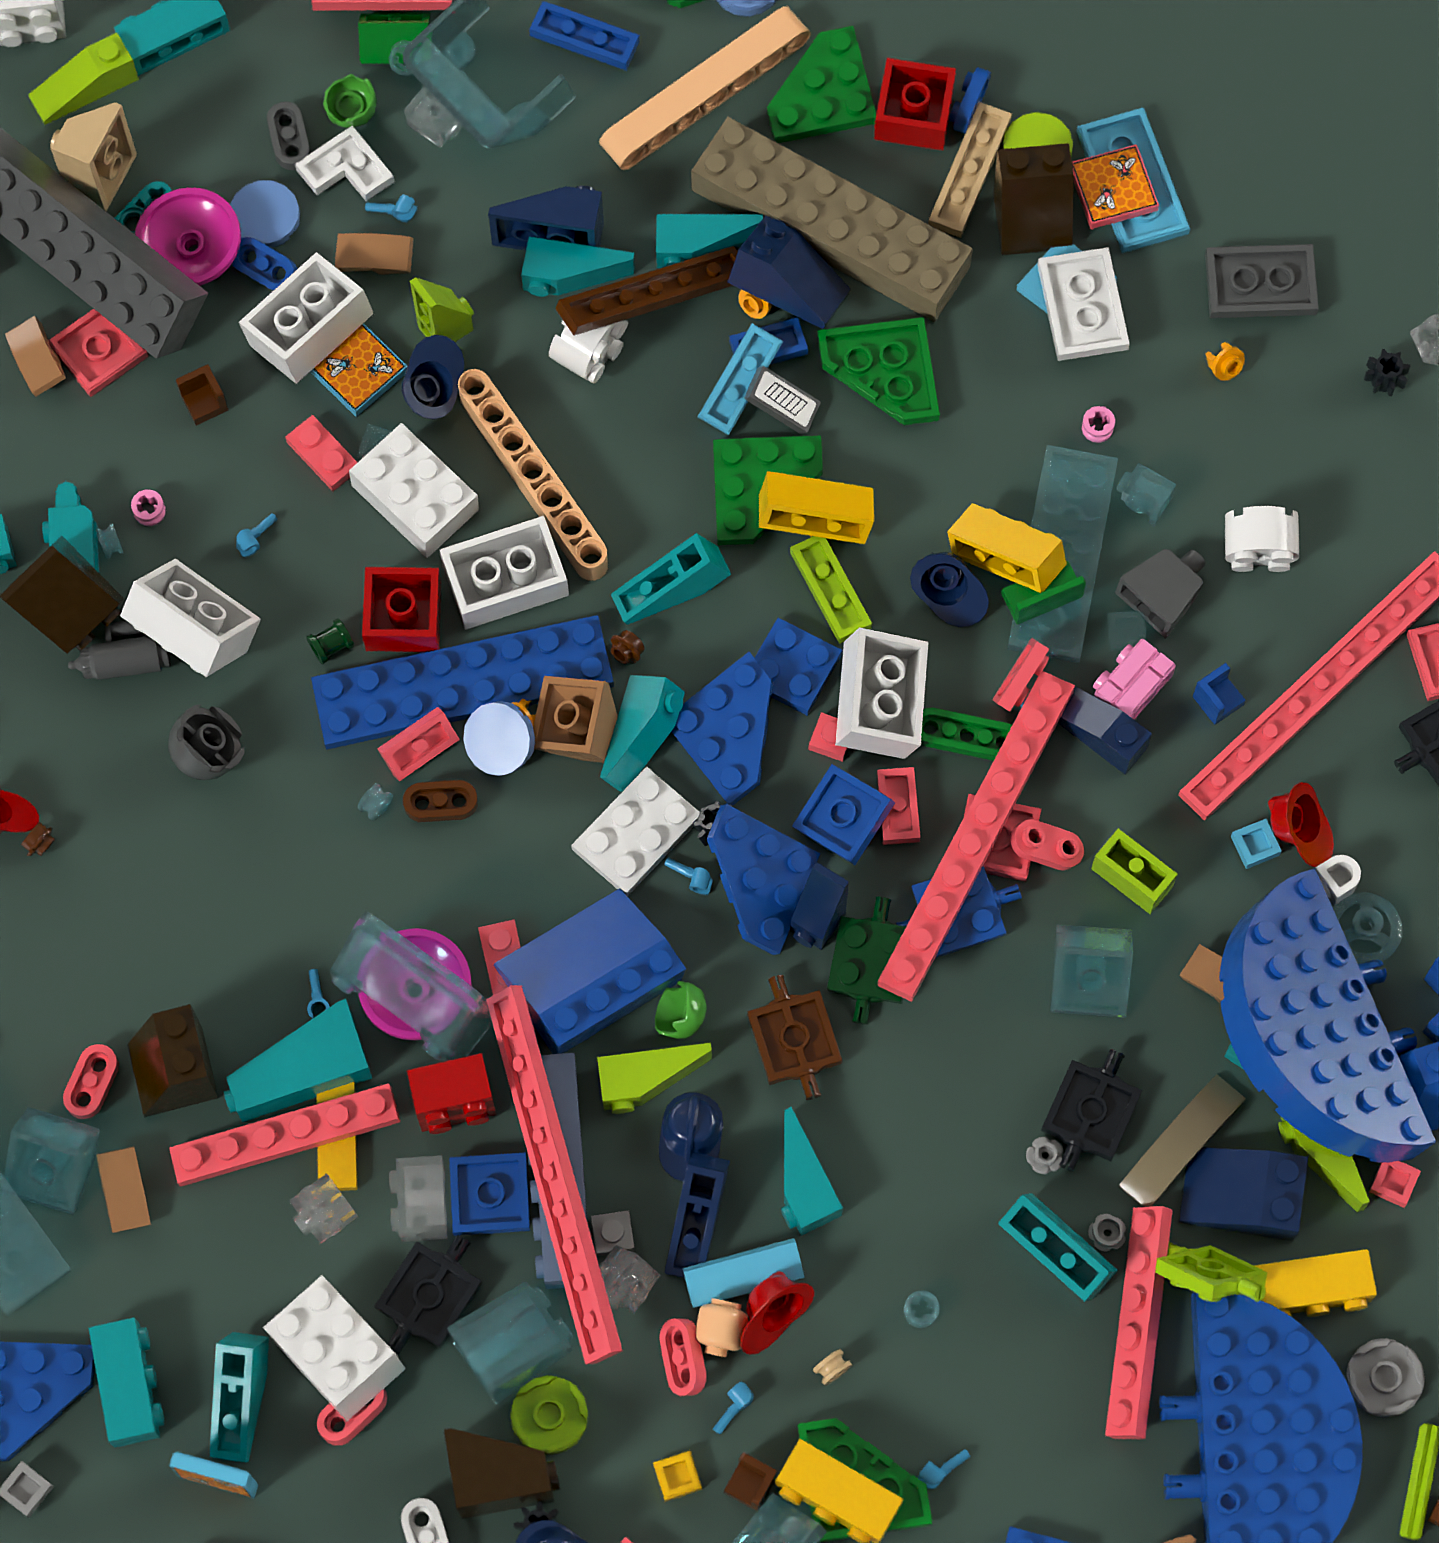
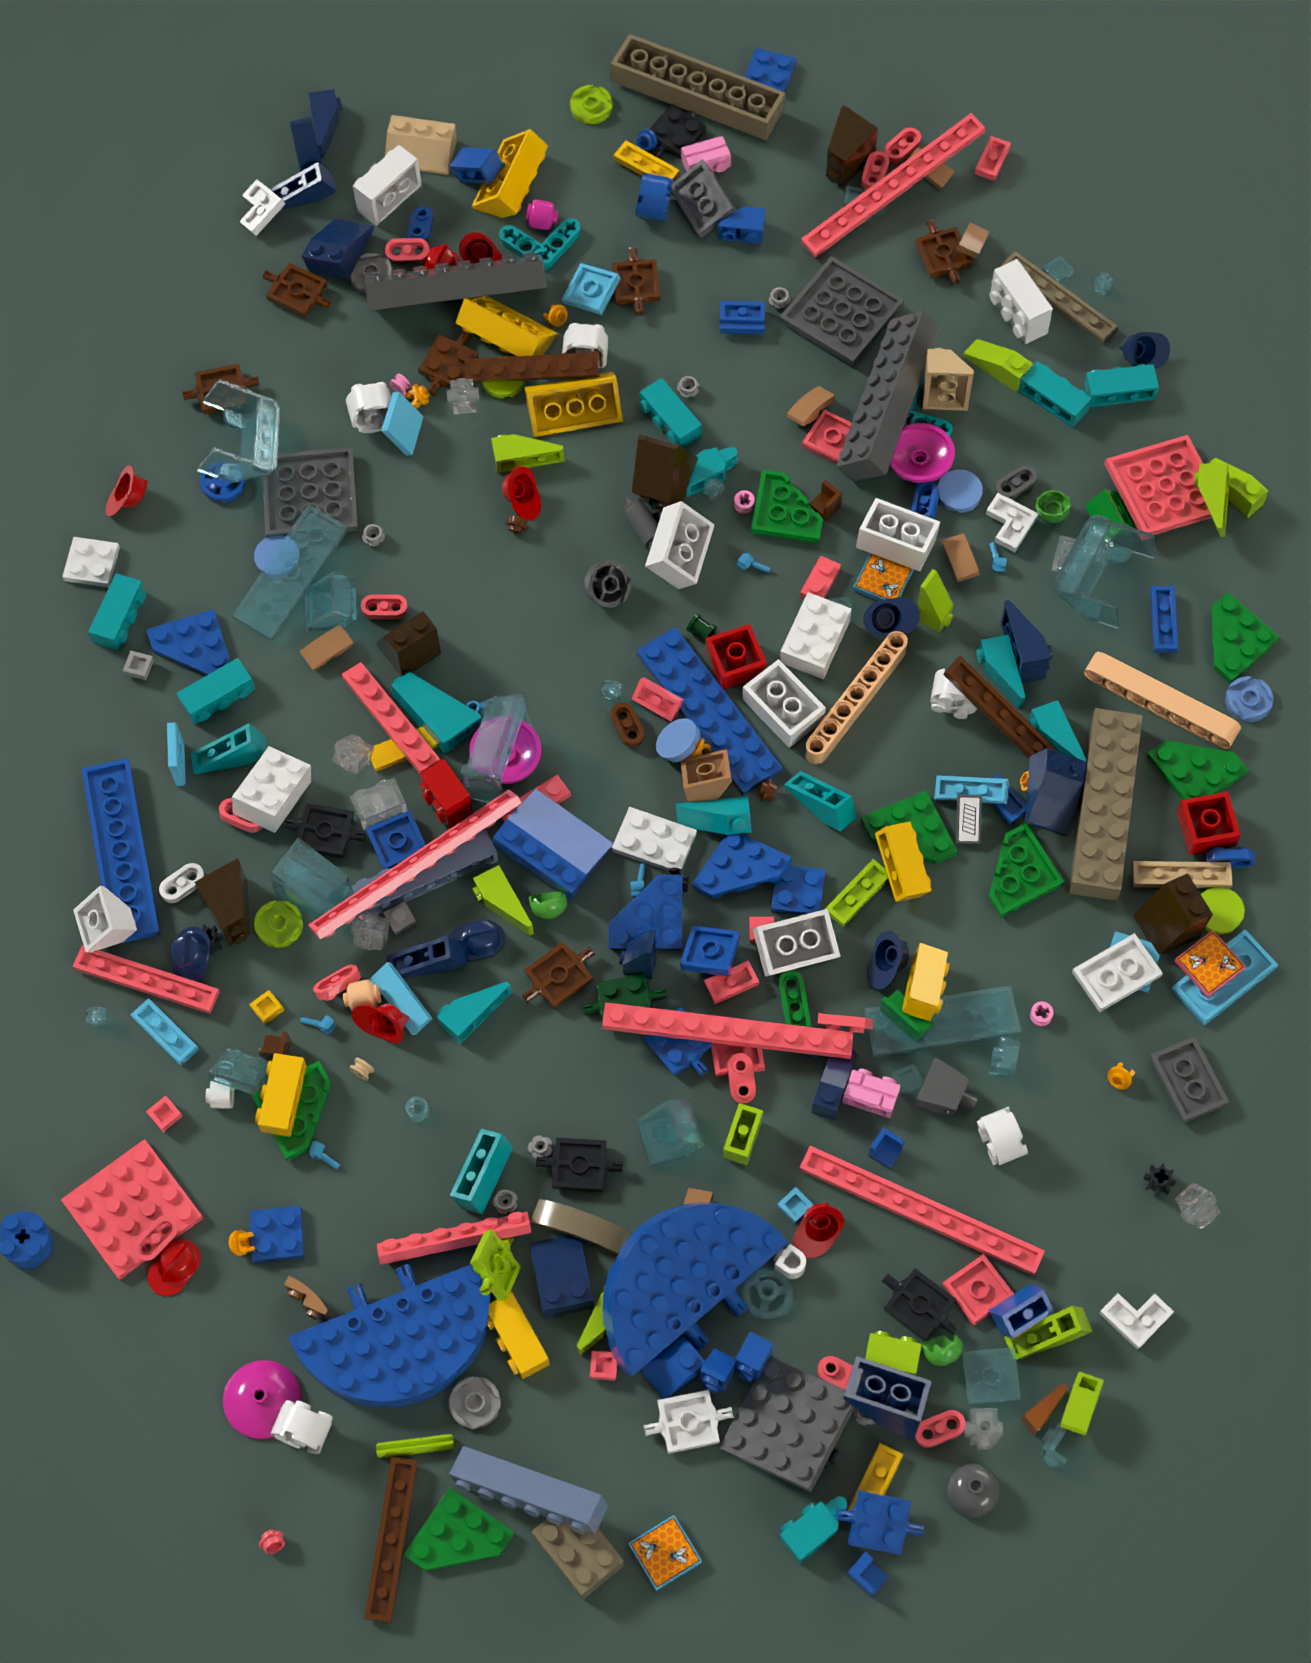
camera: 70 degrees right, 5 degrees down
(188, 457) = (784, 510): none -> green plate

